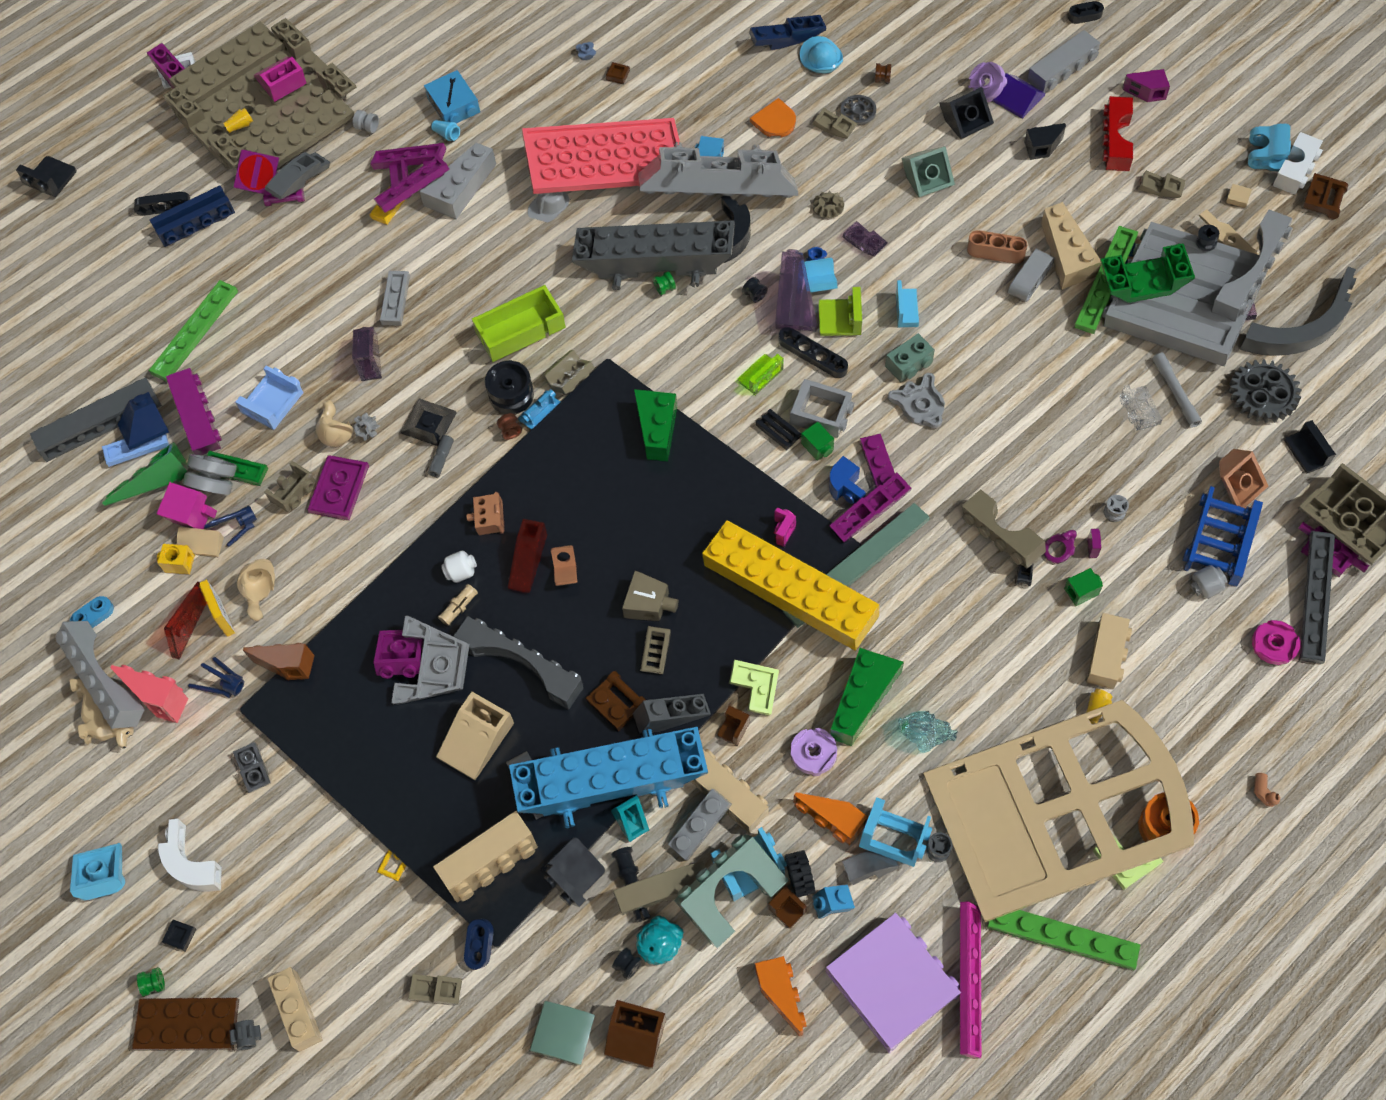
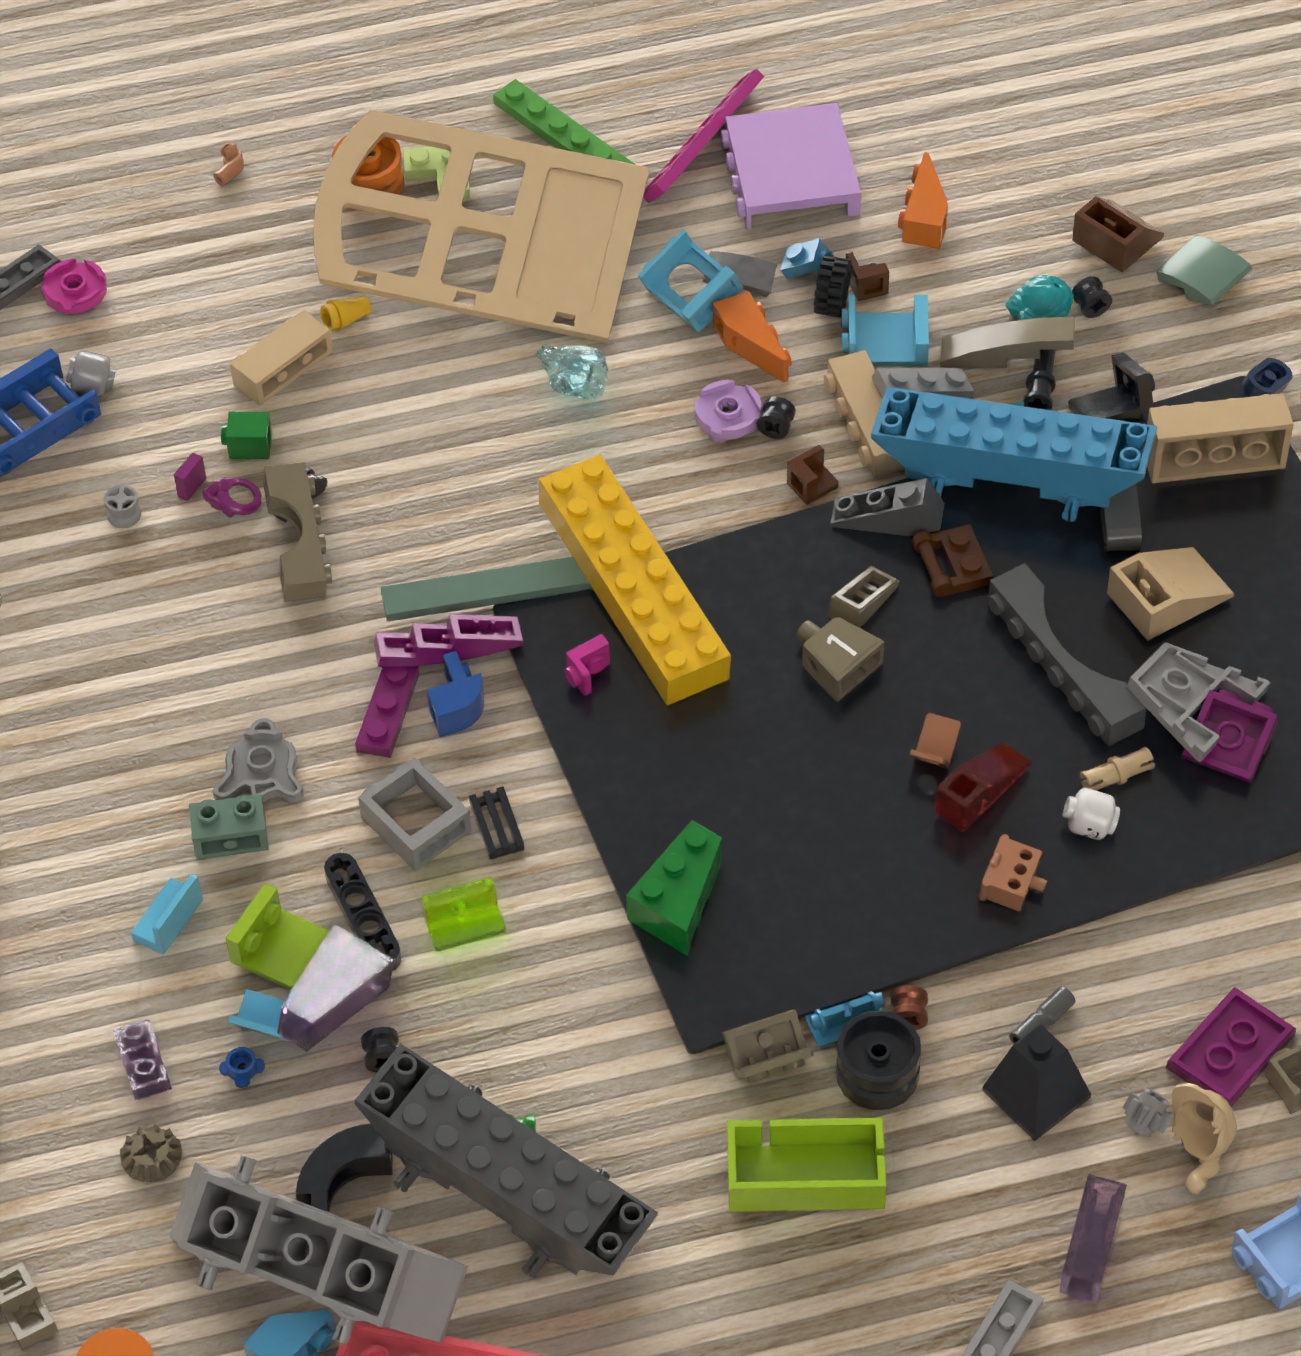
camera: 155 degrees left, 10 degrees down
(698, 898) = (969, 295): sand green arch -> none
(761, 681) = (752, 501): yellowish green plate -> none
(780, 757) = (776, 417): none -> black wheel
(817, 441) = (455, 767): green brick -> none
(866, 687) = (627, 430): green wedge -> none
(939, 842) = (643, 249): dark grey wheel -> none

